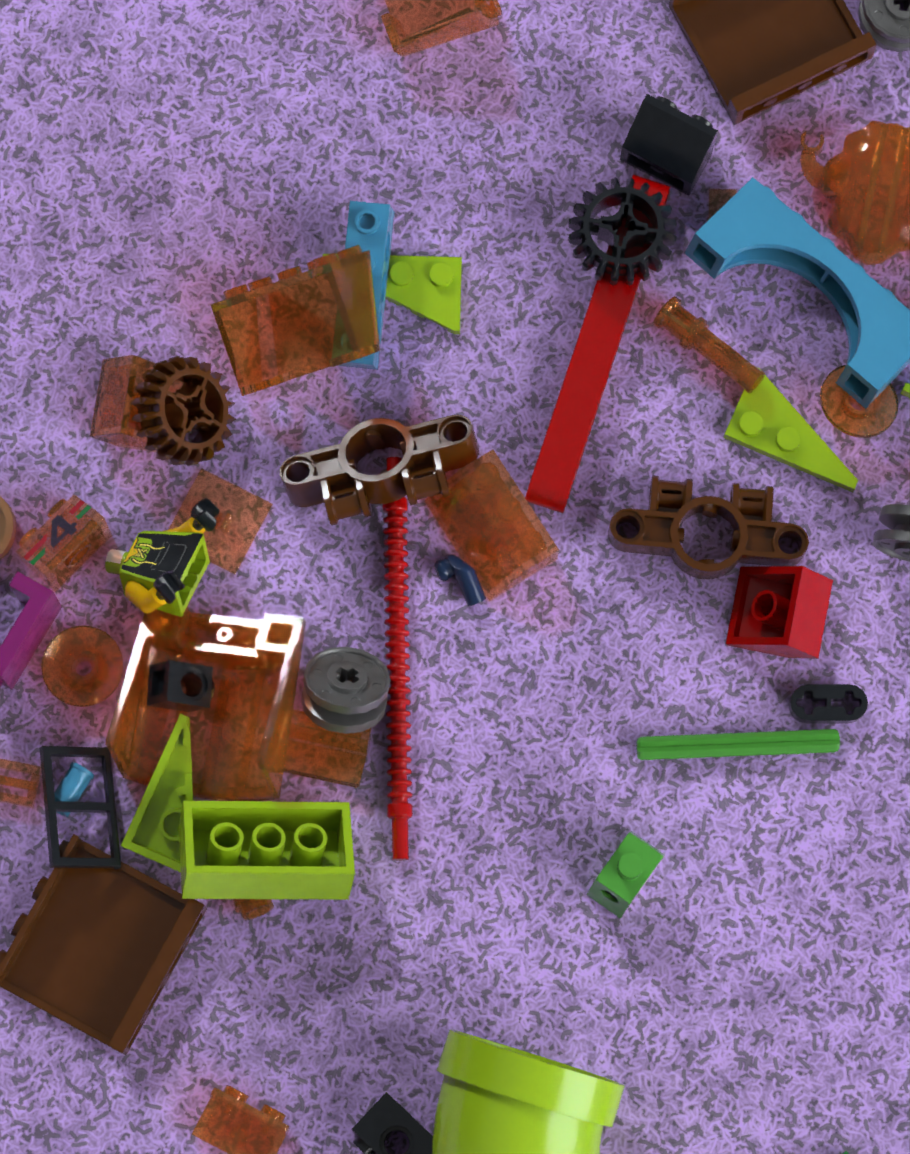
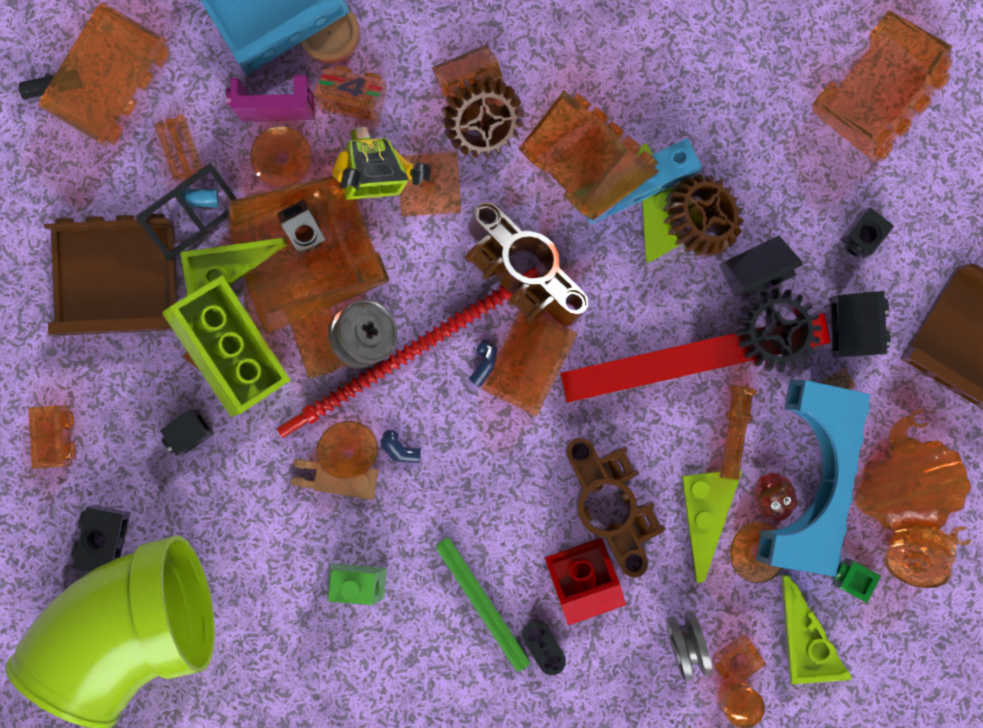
camera: 60 degrees right, 10 degrees up
(334, 966) = (185, 433): none -> black brick
(442, 248) = (693, 217): none -> reddish brown gear
(455, 780) = (345, 437): none -> clear orange dish
(494, 823) = (358, 487): none -> medium nougat hinge
(501, 737) = (396, 450): none -> dark blue arm
(538, 219) = (755, 267): none -> black slope
(572, 63) = (876, 226): none -> black brick
(807, 346) = (775, 496): none -> clear red head

